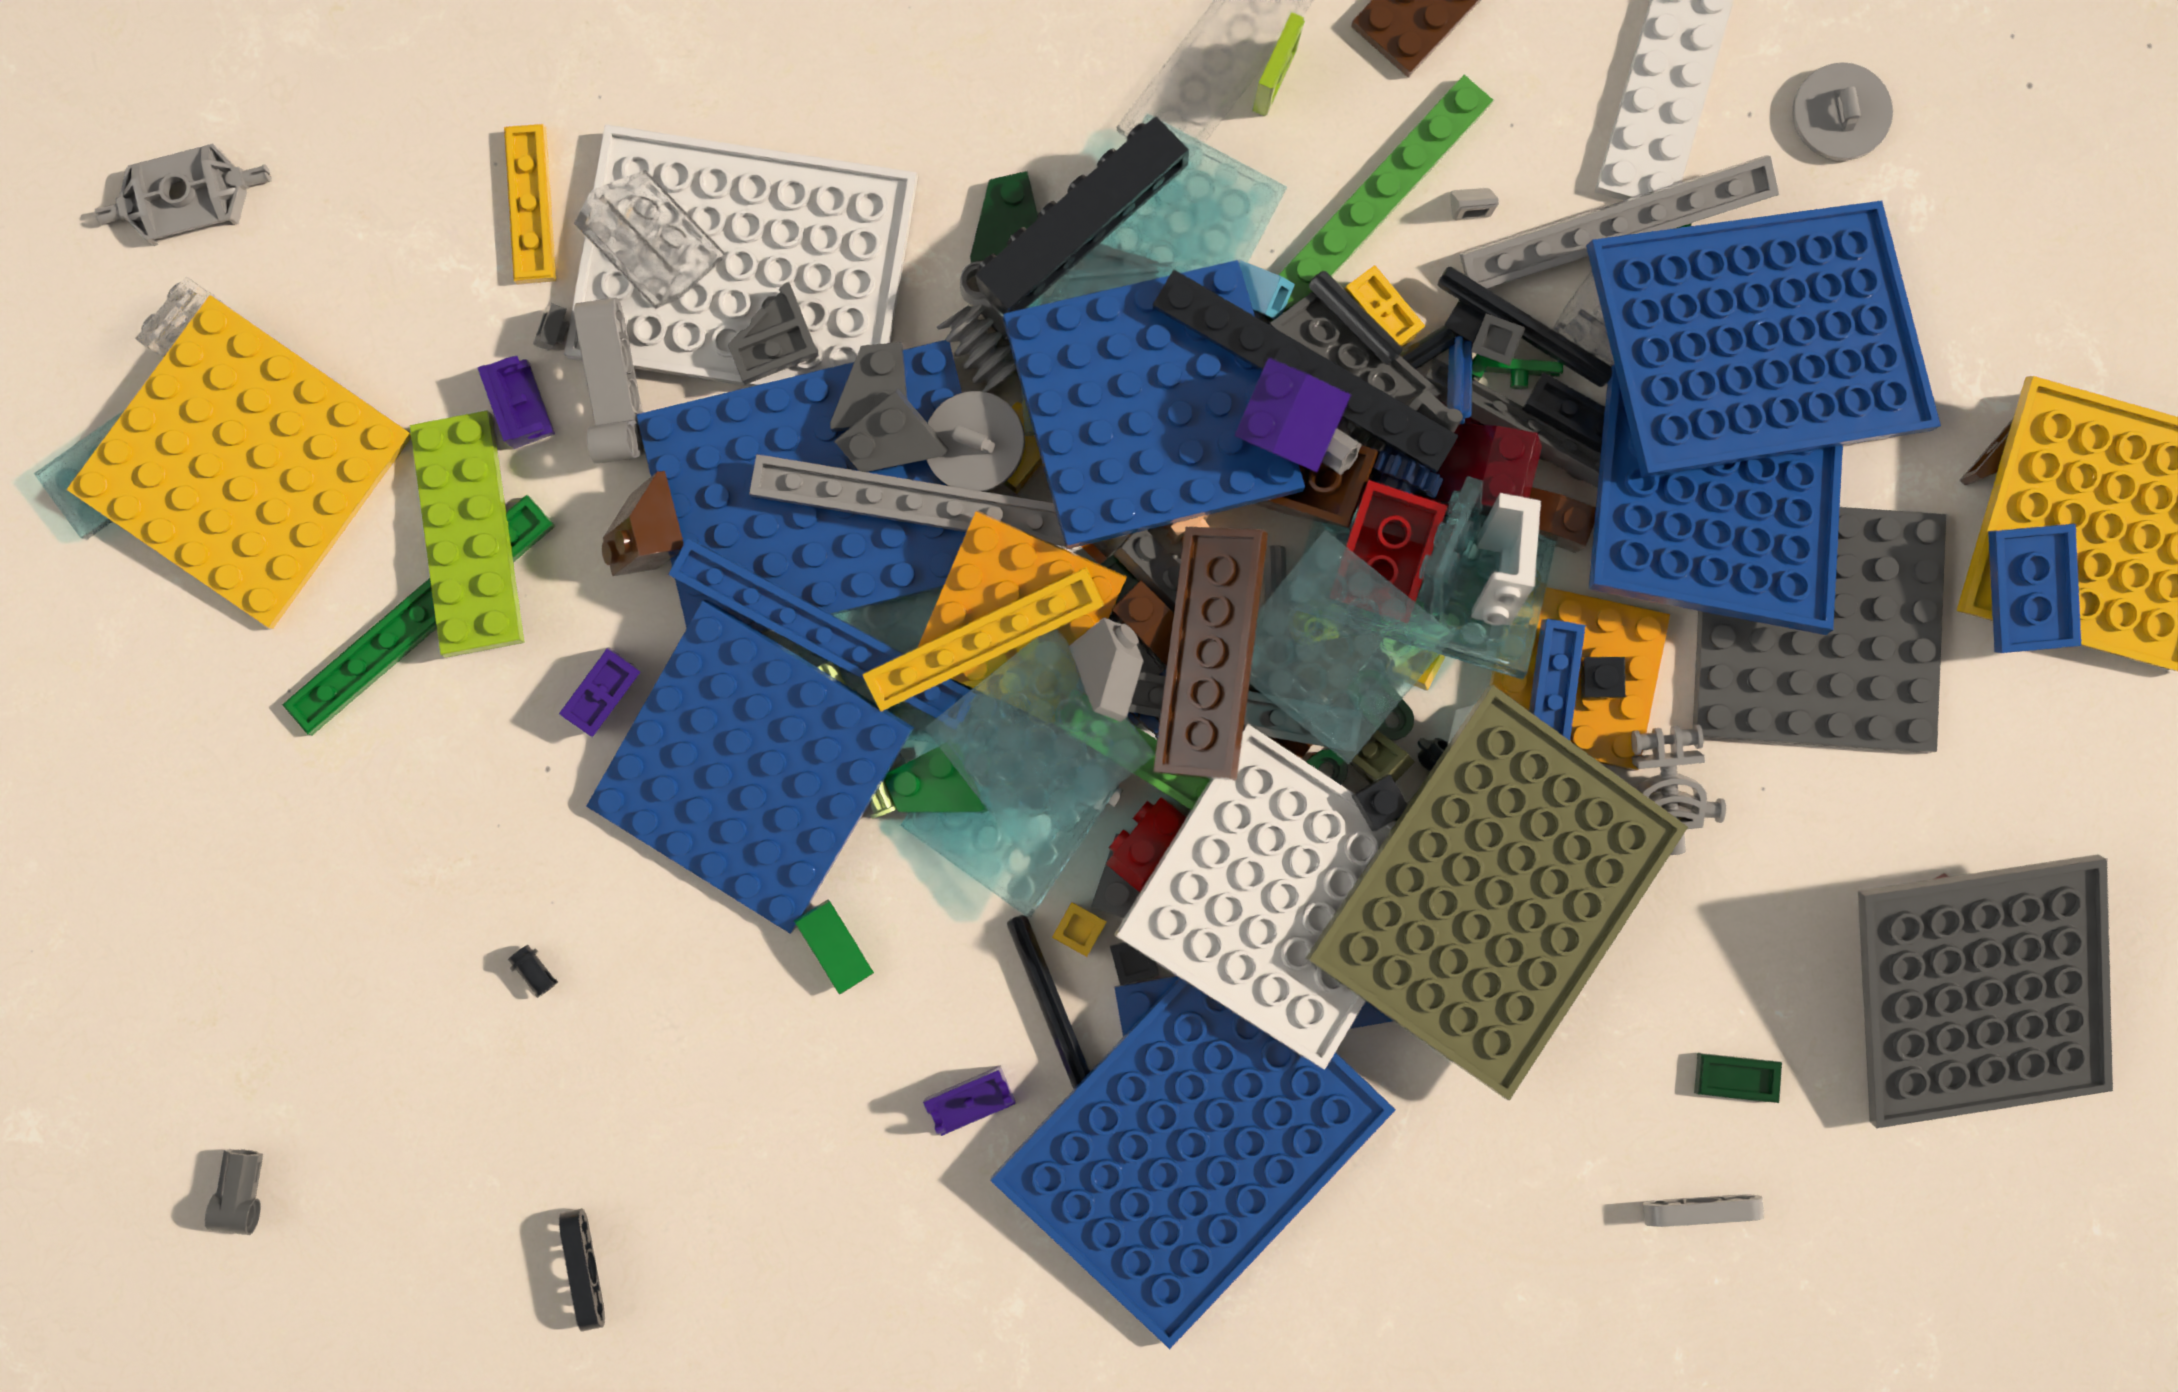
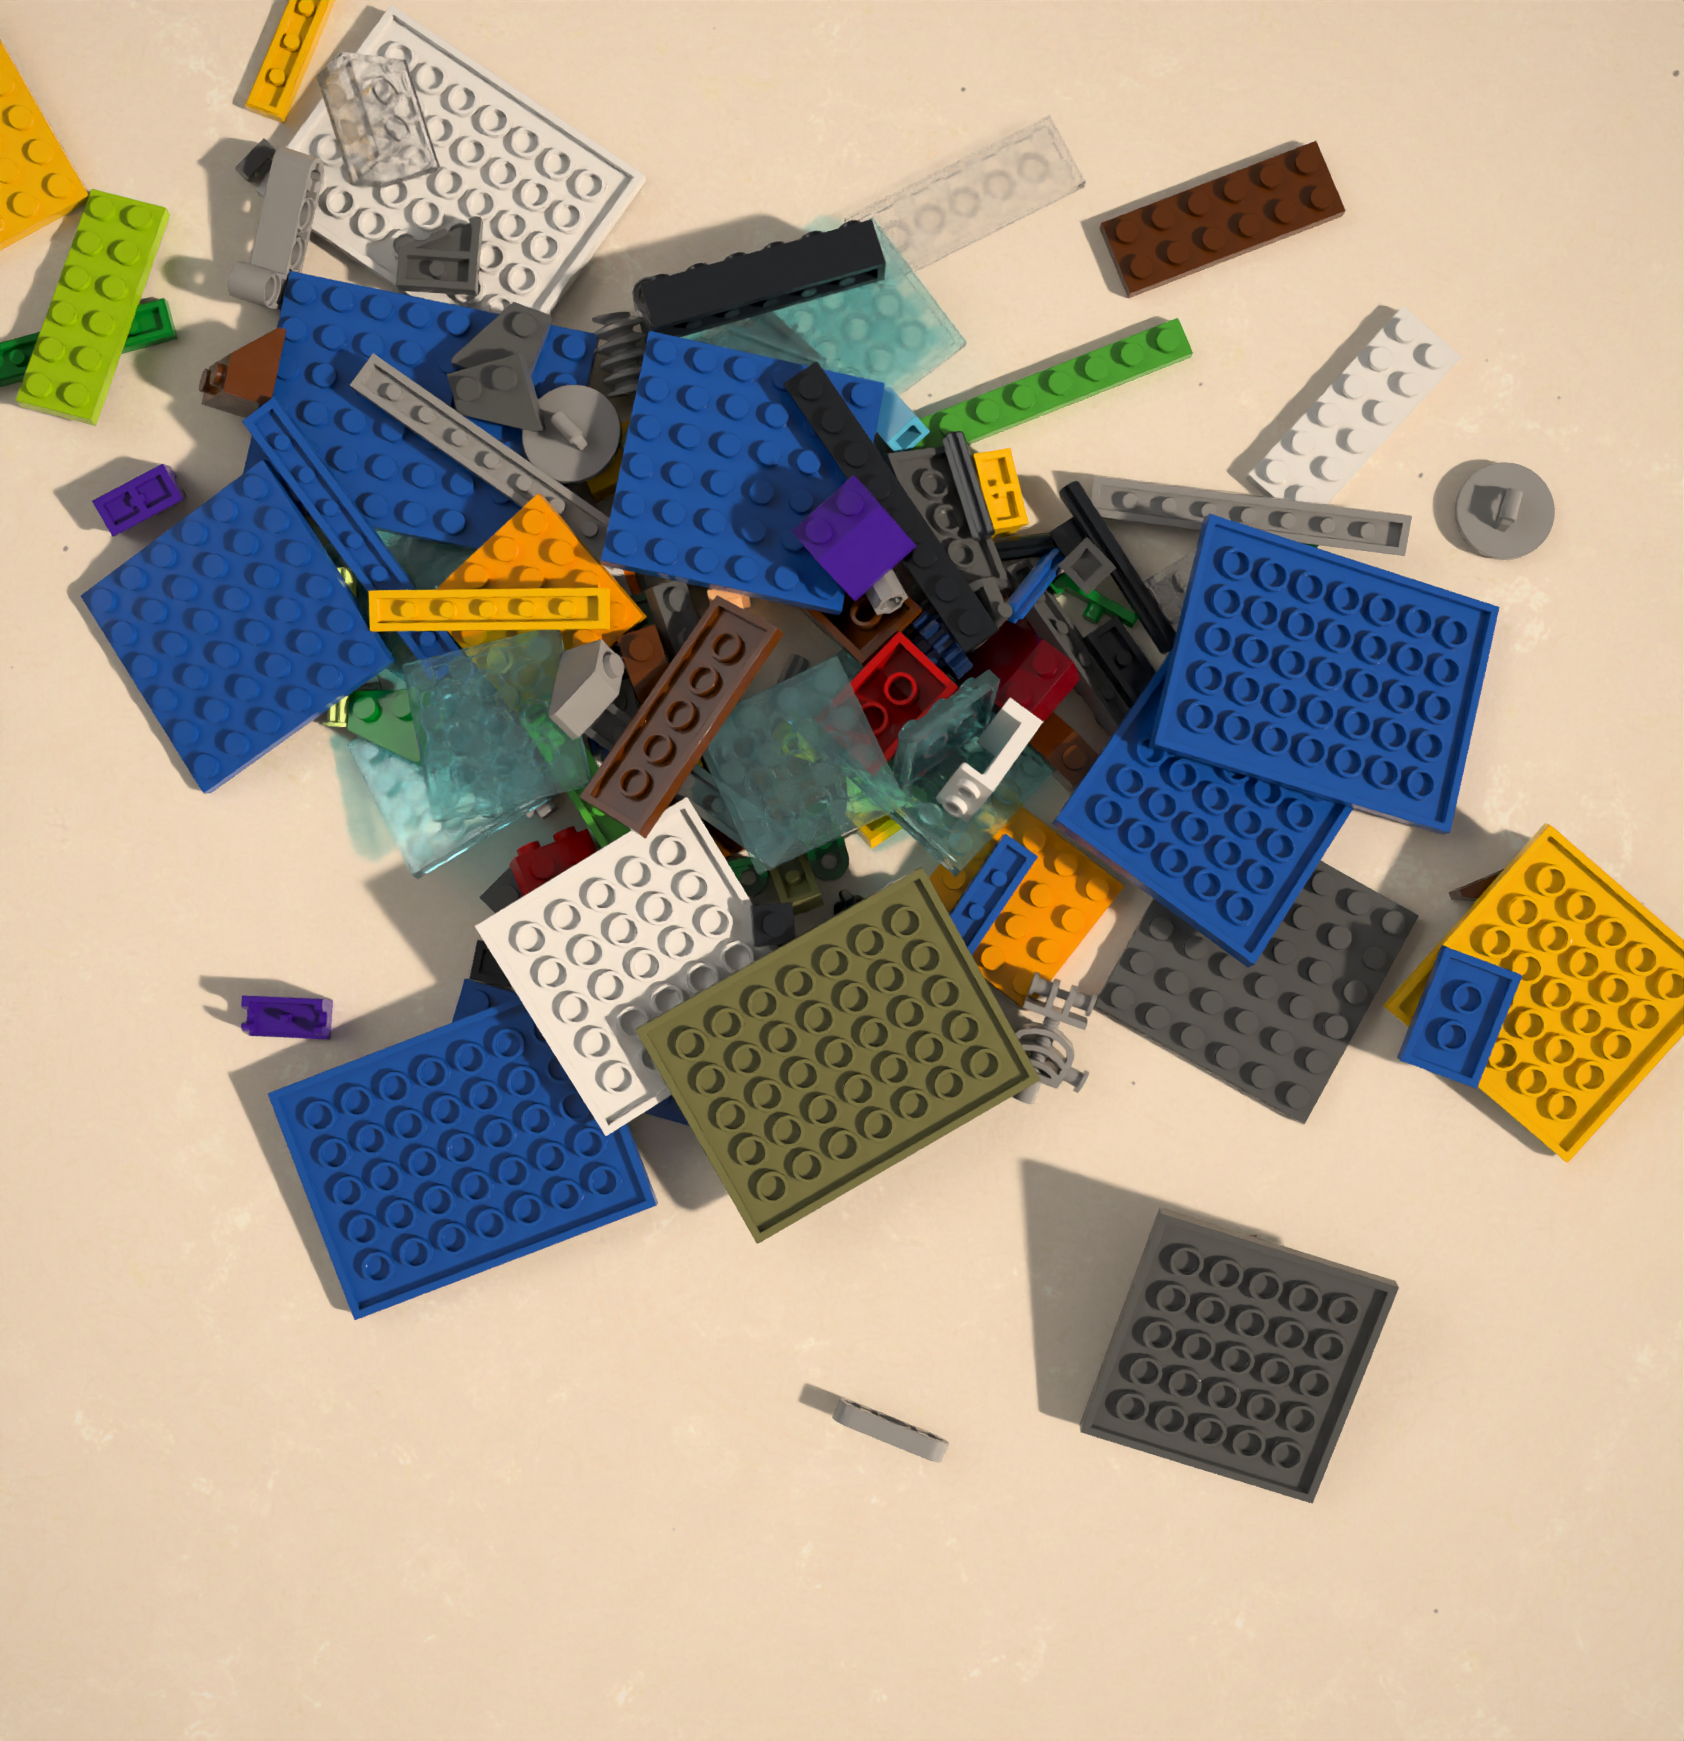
camera: 25 degrees right, 0 degrees up
(516, 401) = (193, 211): dark purple hinge -> none
(833, 946) = (235, 823): green slope -> none
(1005, 209) = (707, 243): dark green wing -> none
(1048, 999) = (402, 959): black axle -> none
(1079, 929) = (458, 912): yellow plate -> none
(1278, 64) = (1011, 229): lime tile -> none
(1473, 203) = (1129, 436): light grey slope -> none
(1603, 677) = (1033, 912): black plate -> none
(1738, 1077) = (982, 1328): dark green tile -> none

